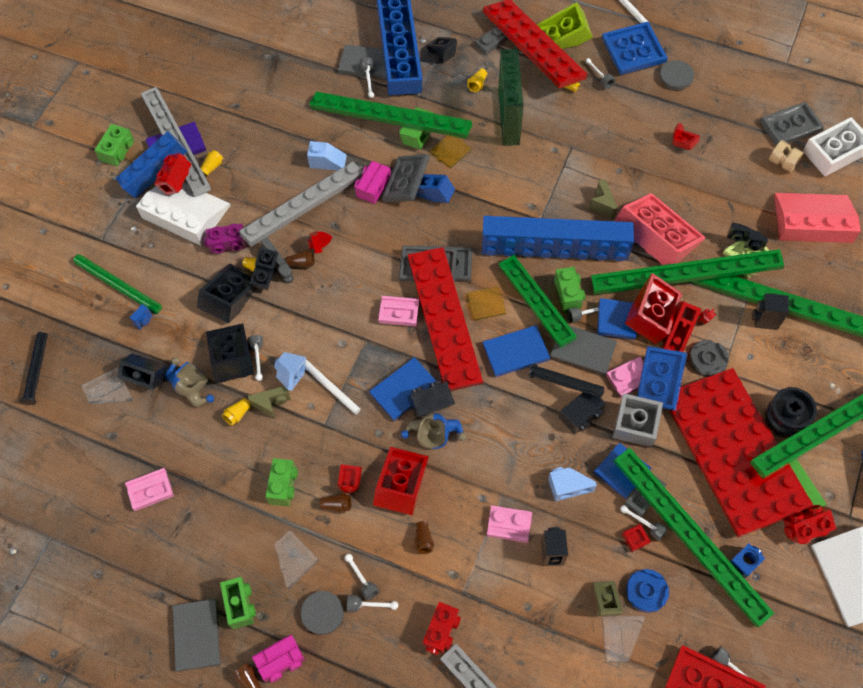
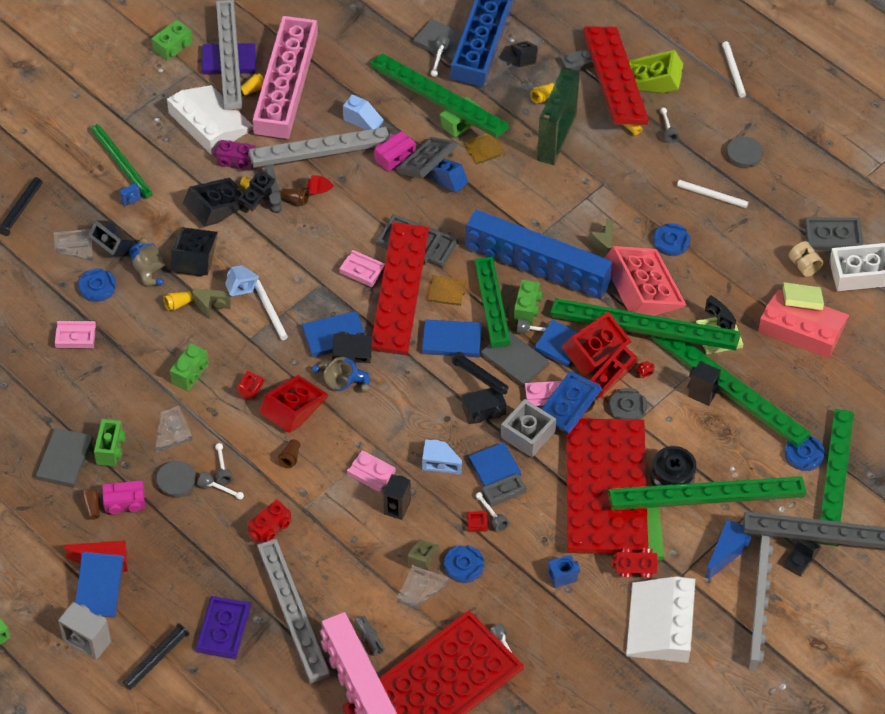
camera: 20 degrees right, 10 degrees down
(146, 167) = (197, 67): blue brick -> none
(148, 425) = (97, 285): none -> blue tile
(173, 174) = (212, 81): red brick -> none
(239, 146) = (285, 77): none -> bright pink brick
(256, 343) = (220, 251): hinge -> none
(337, 503) = (230, 401): reddish brown cone -> none
(634, 48) = (715, 113): blue plate -> none
(659, 179) = (671, 239): none -> blue tile
(670, 123) = (713, 194): none -> white bar
(684, 138) = (714, 210): red plate -> none
(694, 538) = (525, 534): green plate -> none
(804, 192) = (803, 296): none -> yellowish green tile

